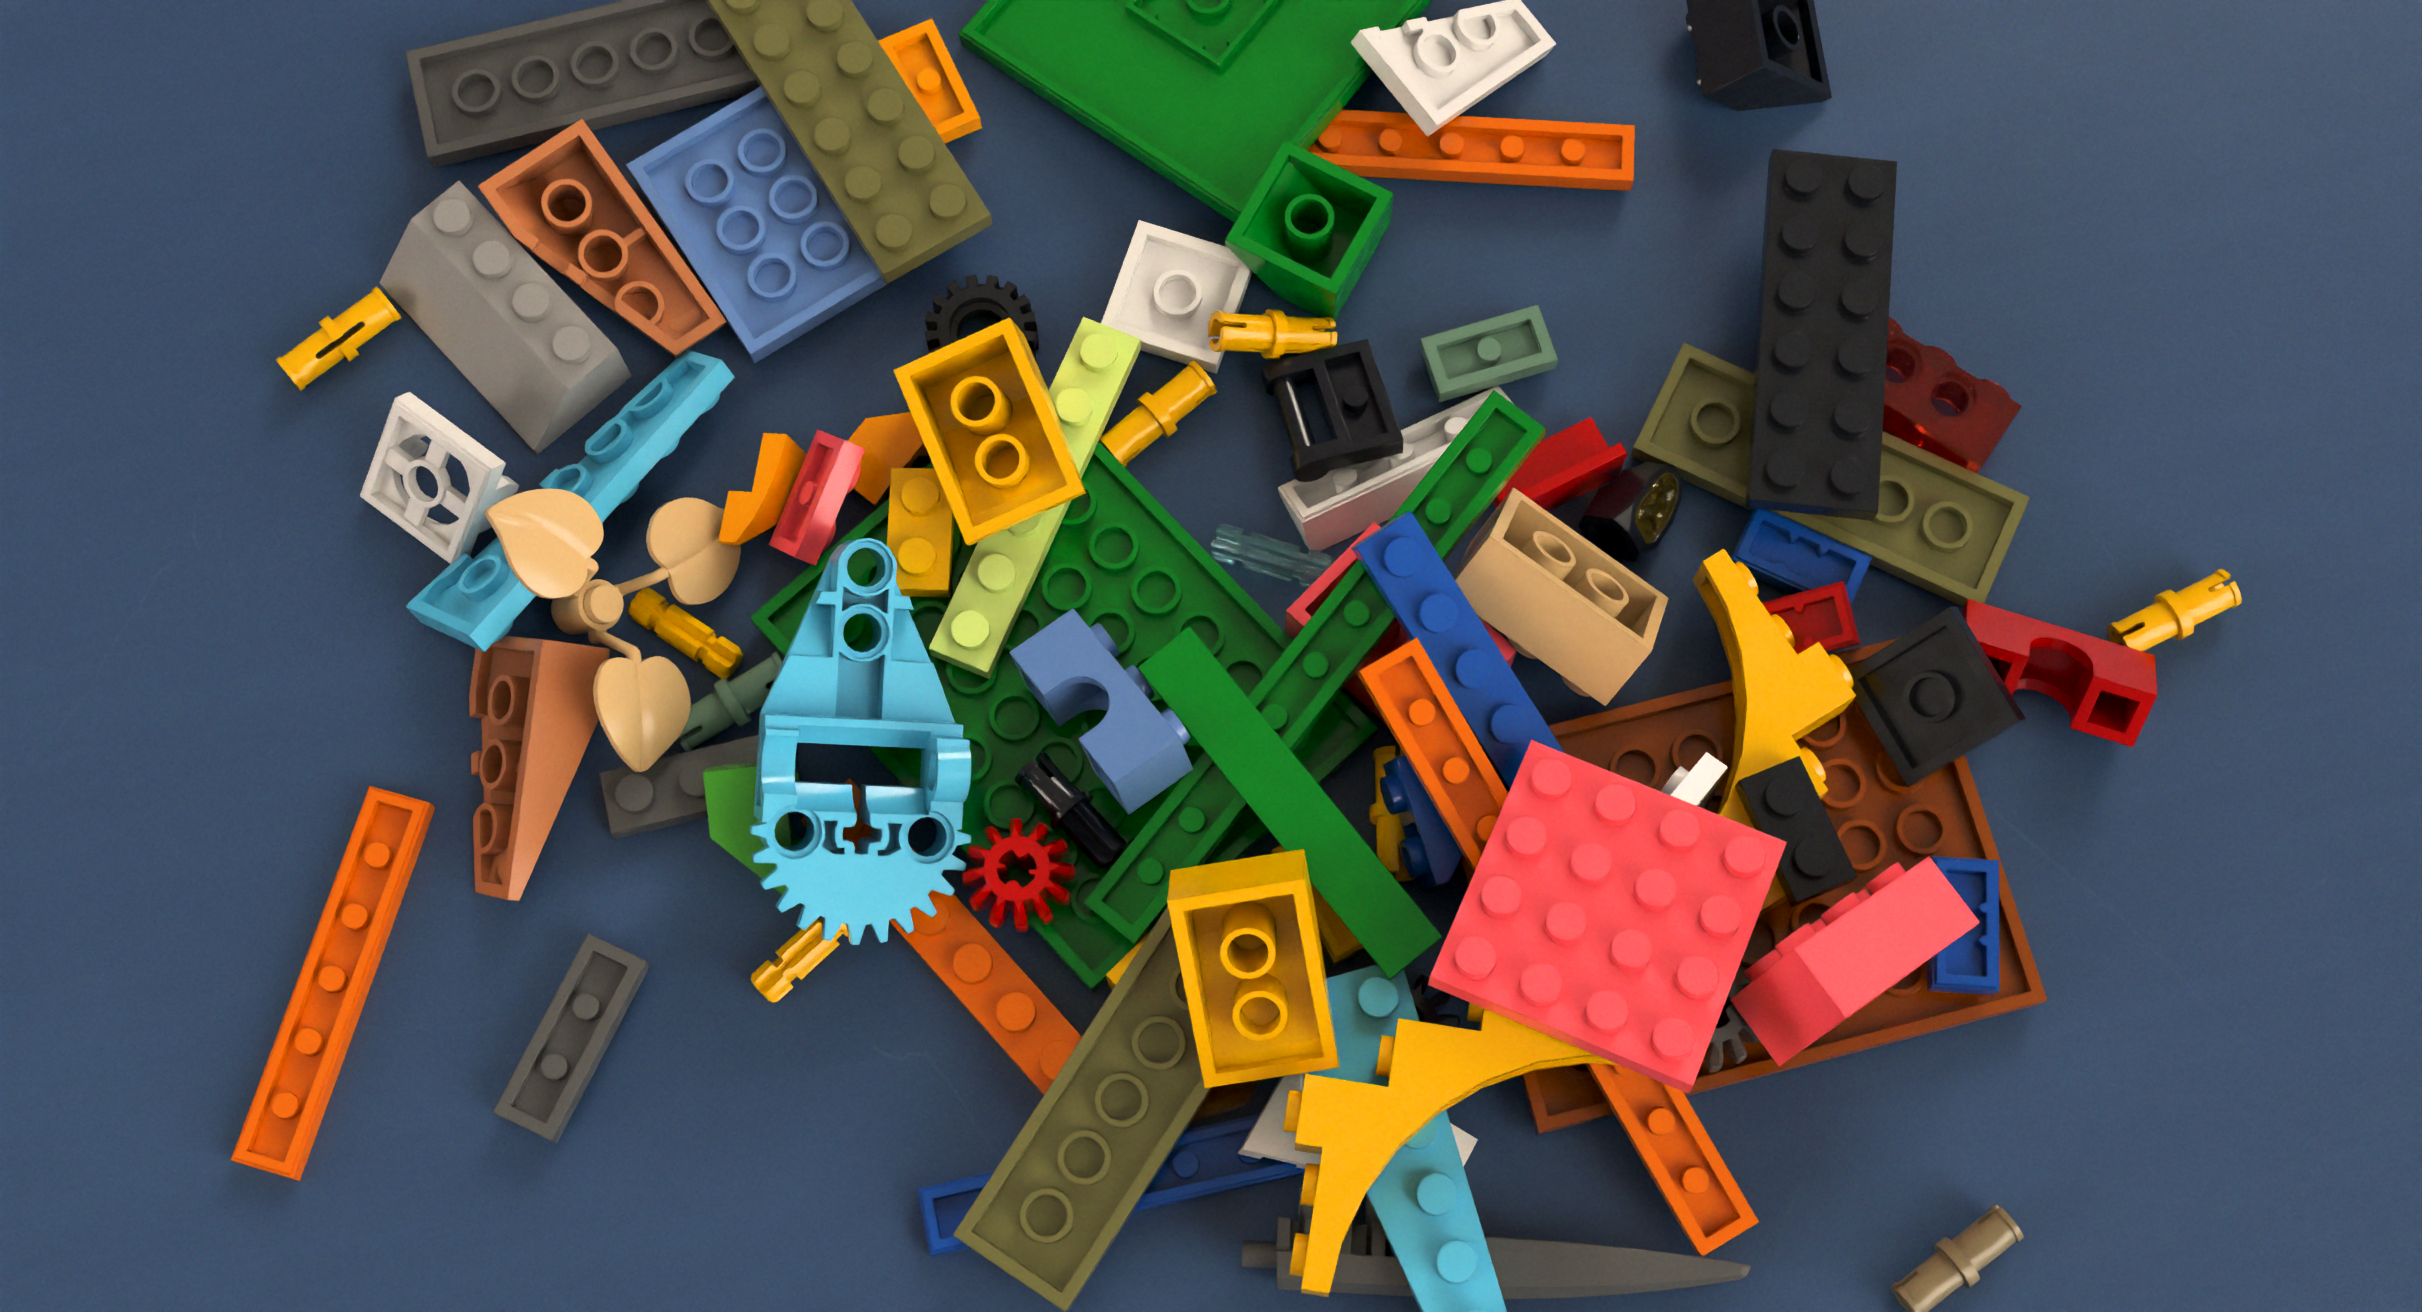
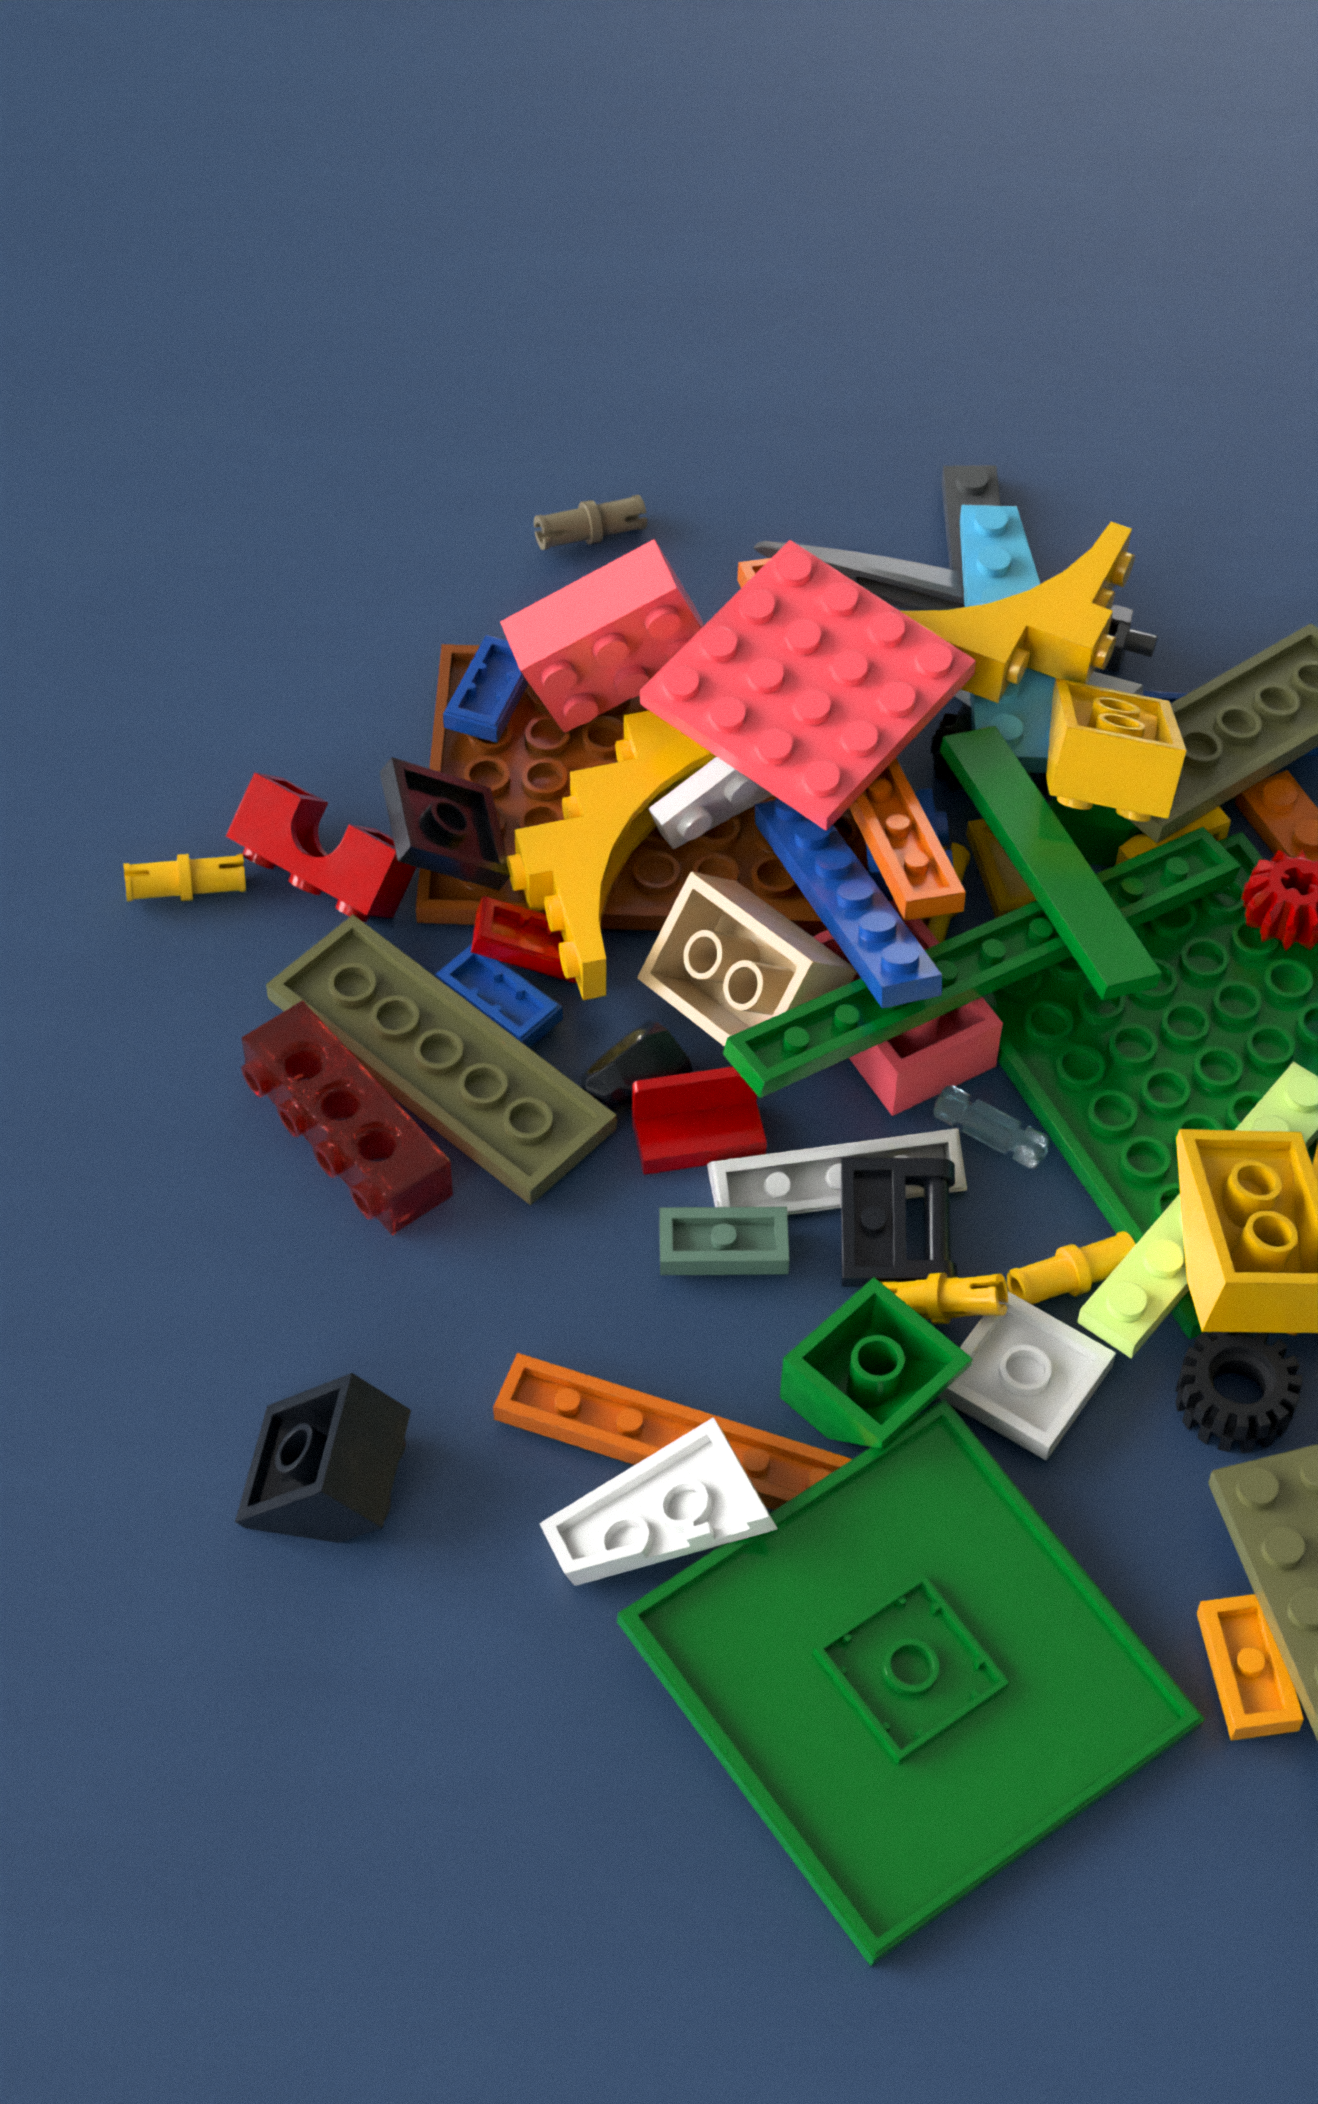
camera: 165 degrees left, 20 degrees down
(1071, 811) = (1236, 940): black axle -> none
(1134, 745) = (1206, 1028): medium blue arch -> none
(1789, 808) = (614, 742): black plate -> none
(1822, 335) = (399, 1140): black plate -> none

